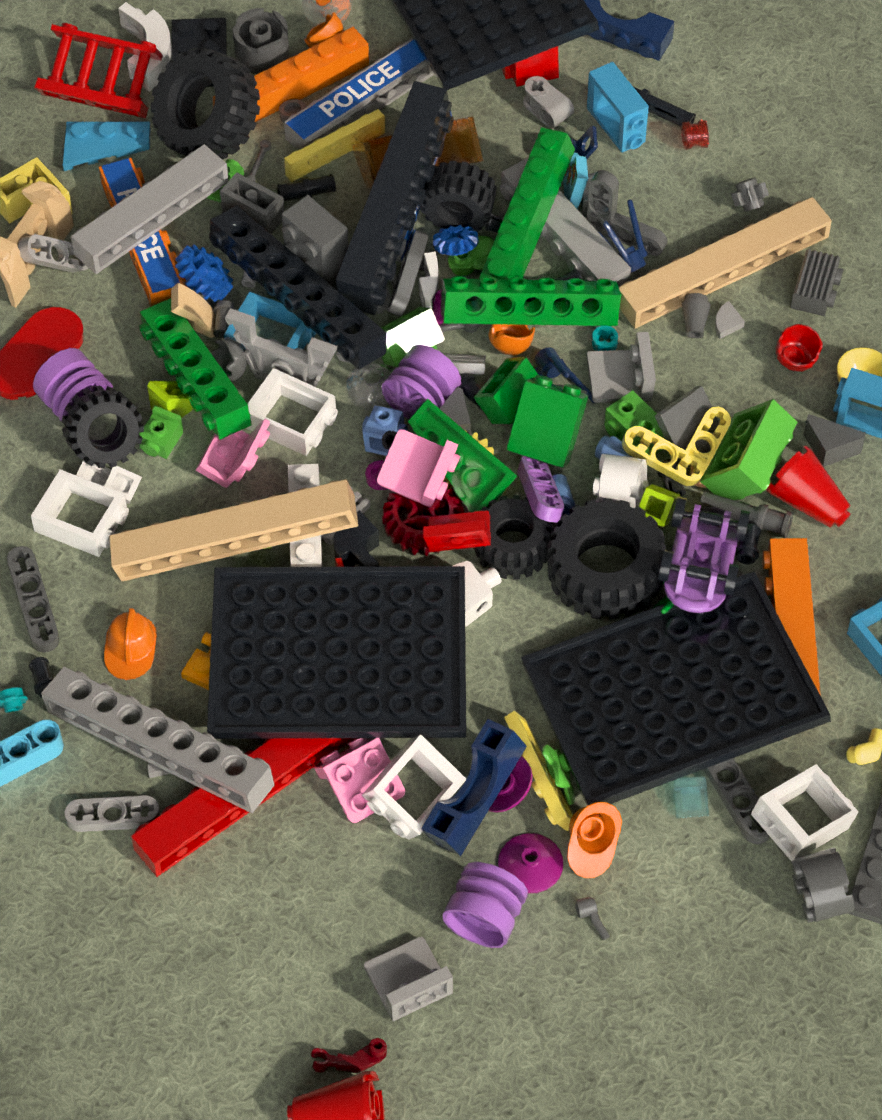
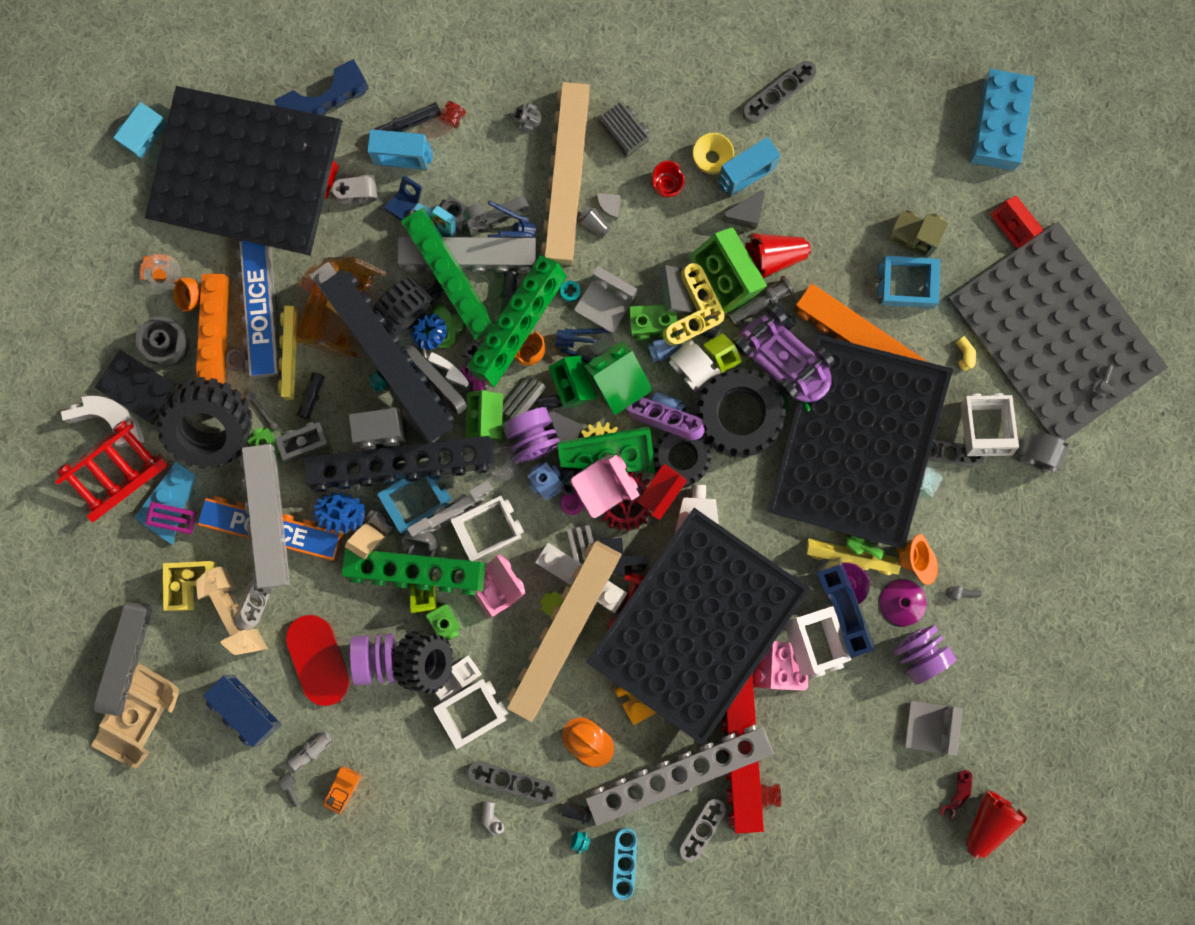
camera: 55 degrees left, 25 degrees up
(95, 164) = (153, 514): none -> magenta tile
(201, 854) = (771, 795): none -> clear red wheel

